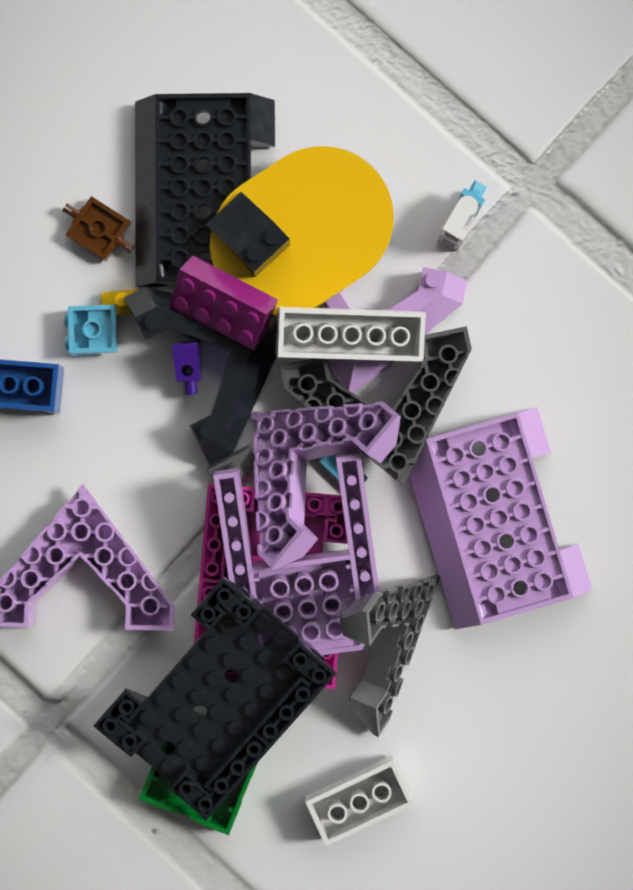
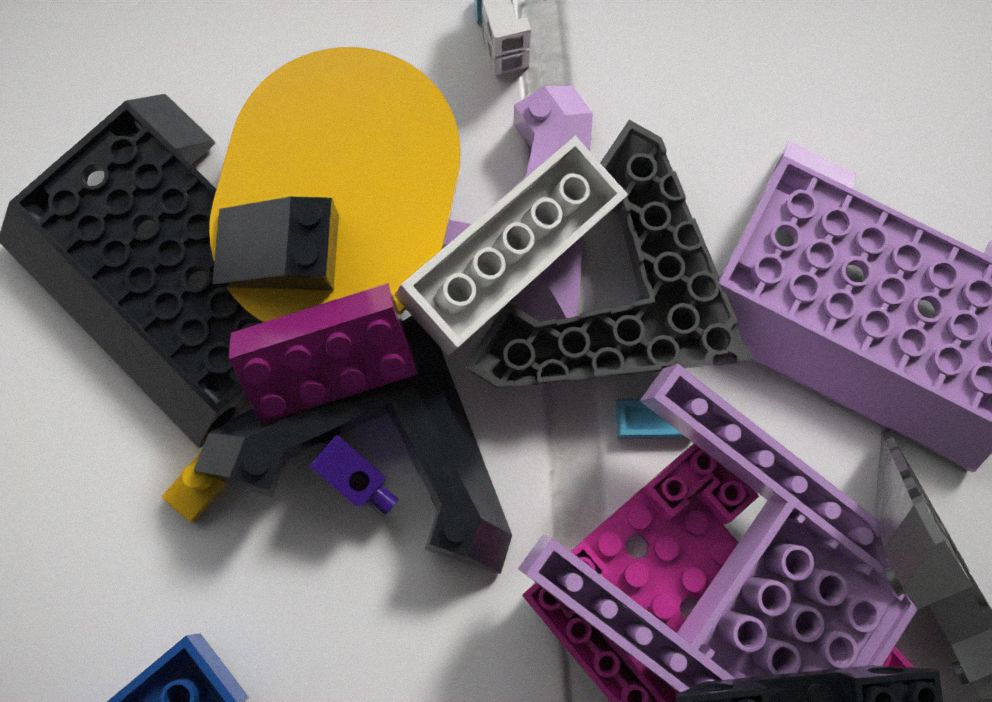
camera: 50 degrees left, 10 degrees down
(91, 330) = (191, 552): medium azure plate -> none
(98, 228) = (86, 424): reddish brown plate -> none
(240, 459) = (526, 529): dark grey tile -> none
(281, 450) = (563, 456): lavender wedge -> none

